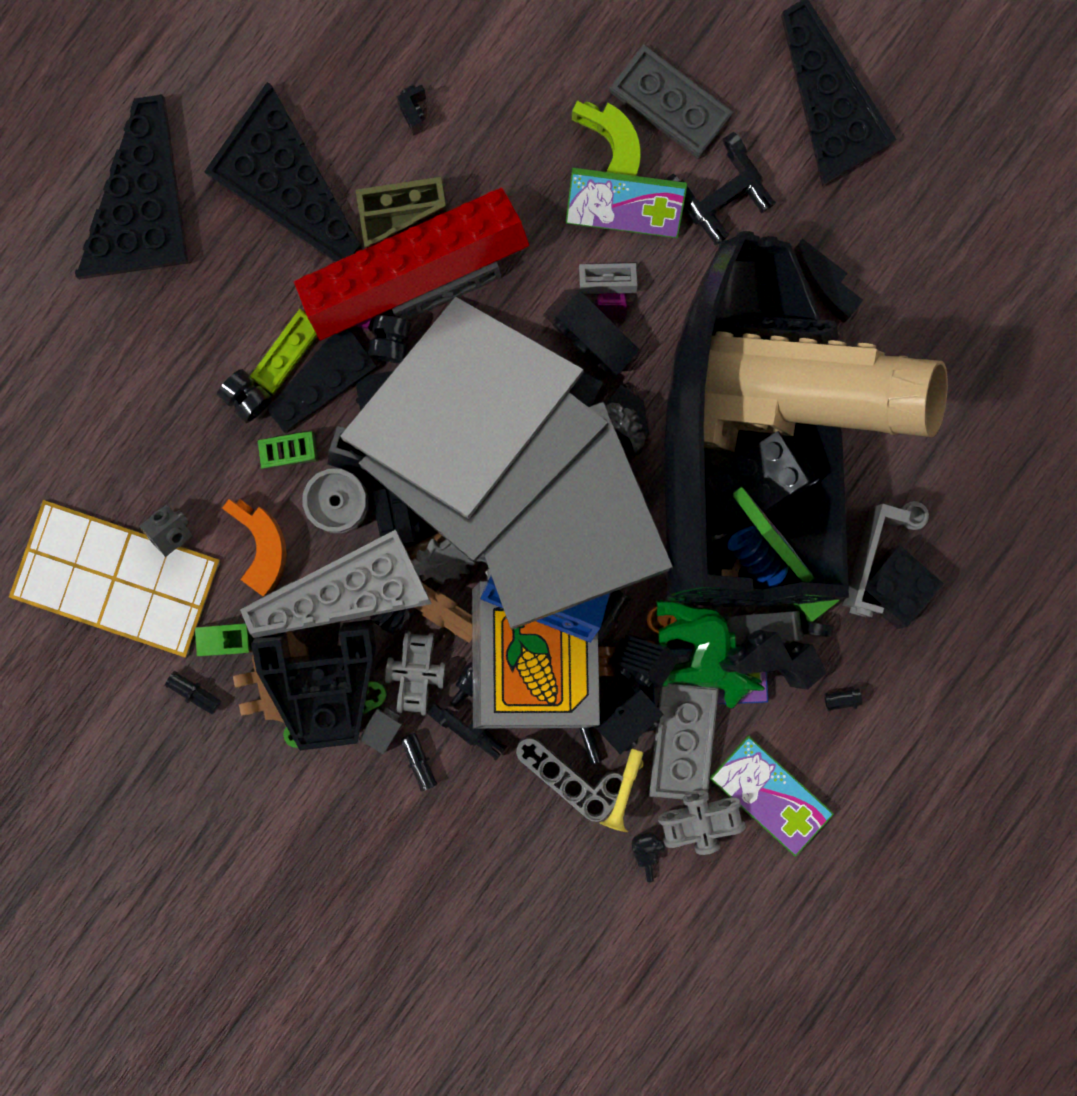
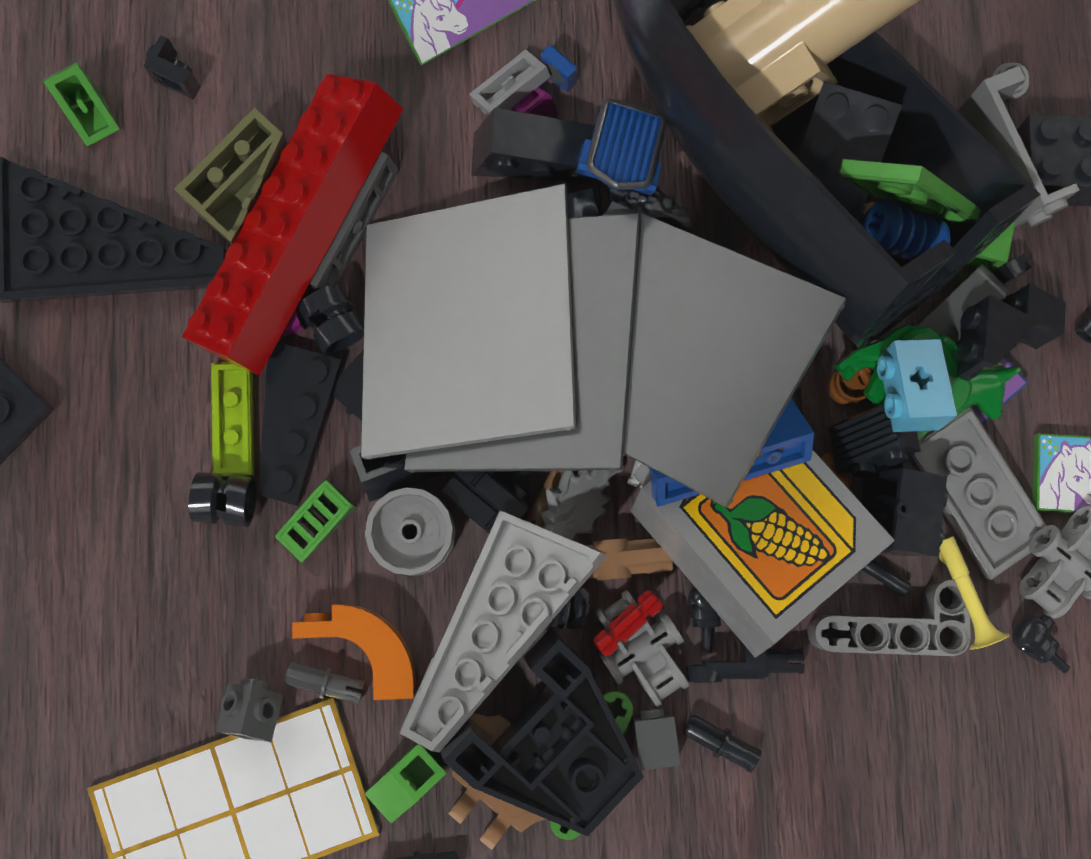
camera: 40 degrees left, 5 degrees down
(221, 547) = (324, 682): none -> dark grey axle
(344, 90) = (82, 103): none -> bright green slope
(417, 651) = (628, 623): none -> red axle
(631, 377) = (624, 147): none -> blue piece
(645, 291) = (559, 68): none -> blue tile
(697, 641) = (916, 385): none -> medium azure brick

